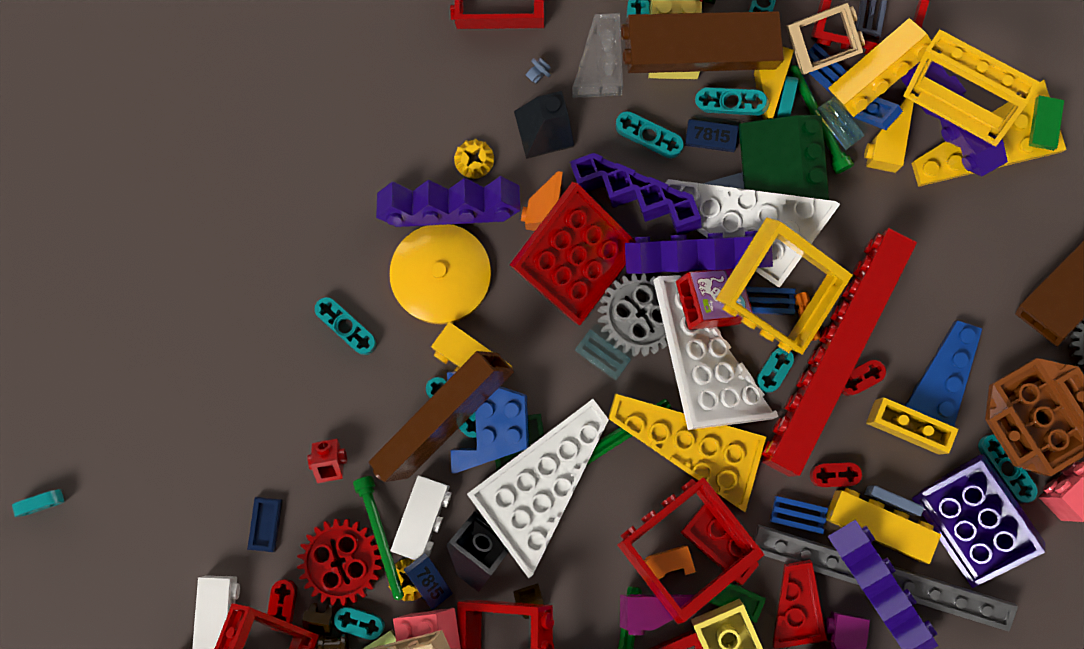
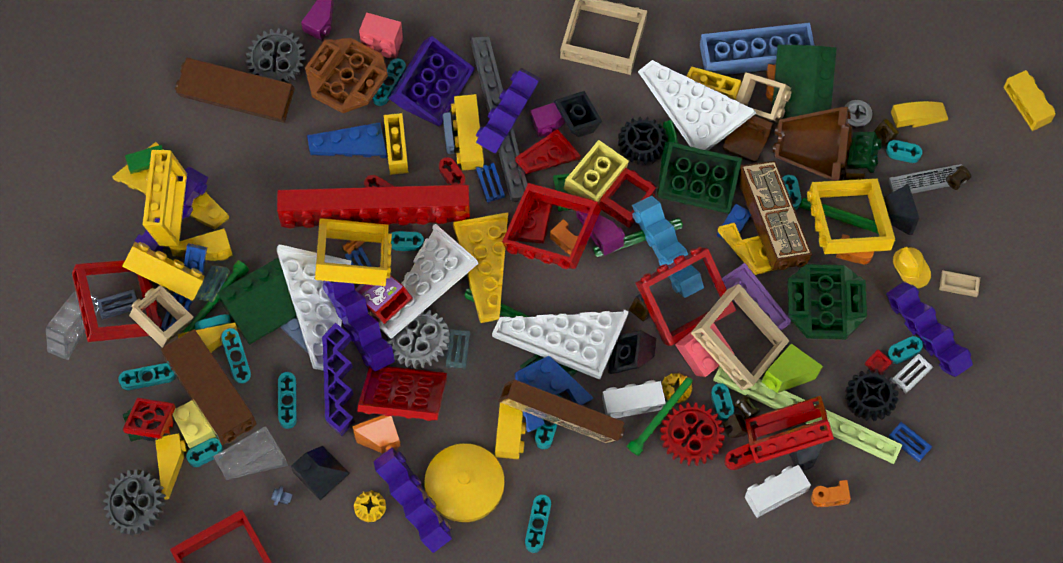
camera: 125 degrees left, 15 degrees down
(264, 524) = (700, 498): dark blue tile -> none
(327, 460) = (633, 477): red brick -> none
(428, 581) = (669, 371): dark blue tile -> none
(711, 135) = (265, 360): dark blue tile -> none

